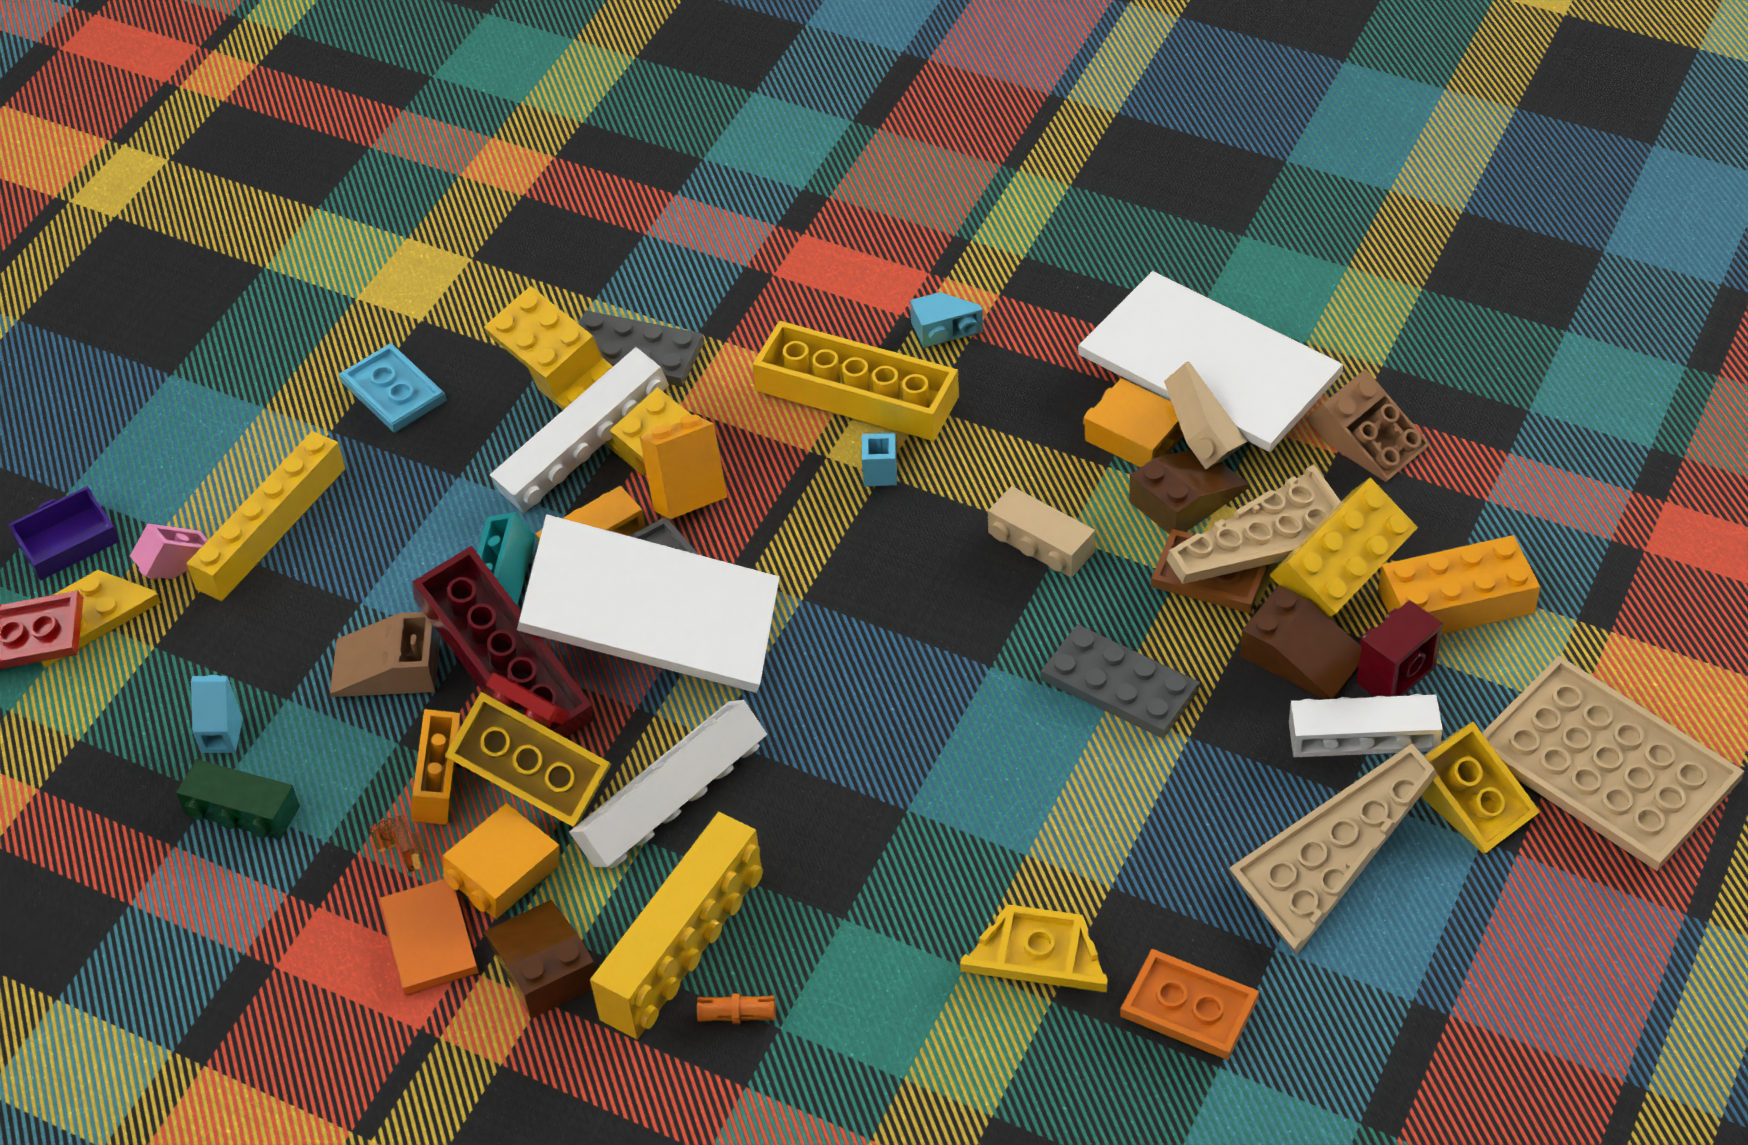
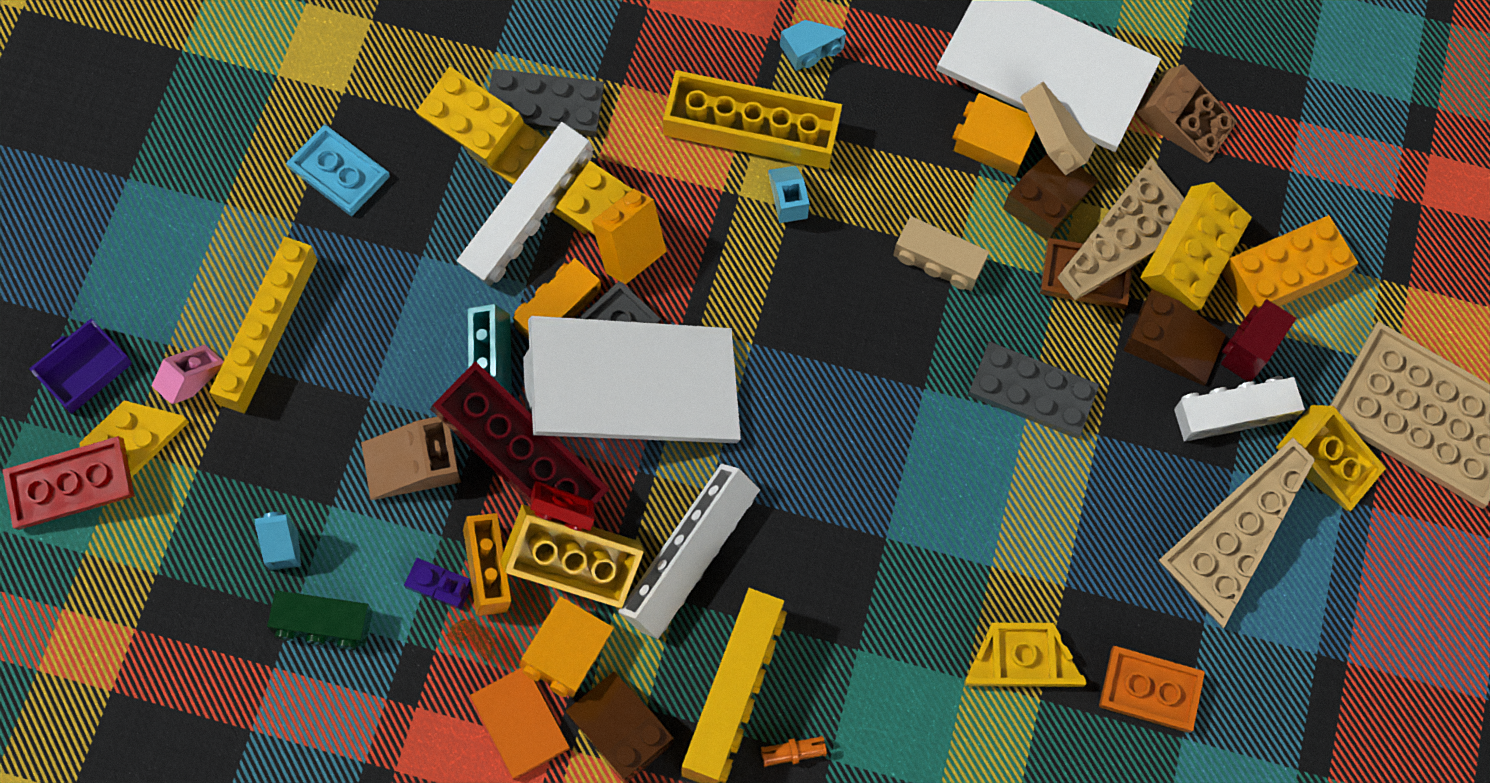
camera: 20 degrees left, 20 degrees up
(378, 786) = (438, 584): none -> dark purple plate

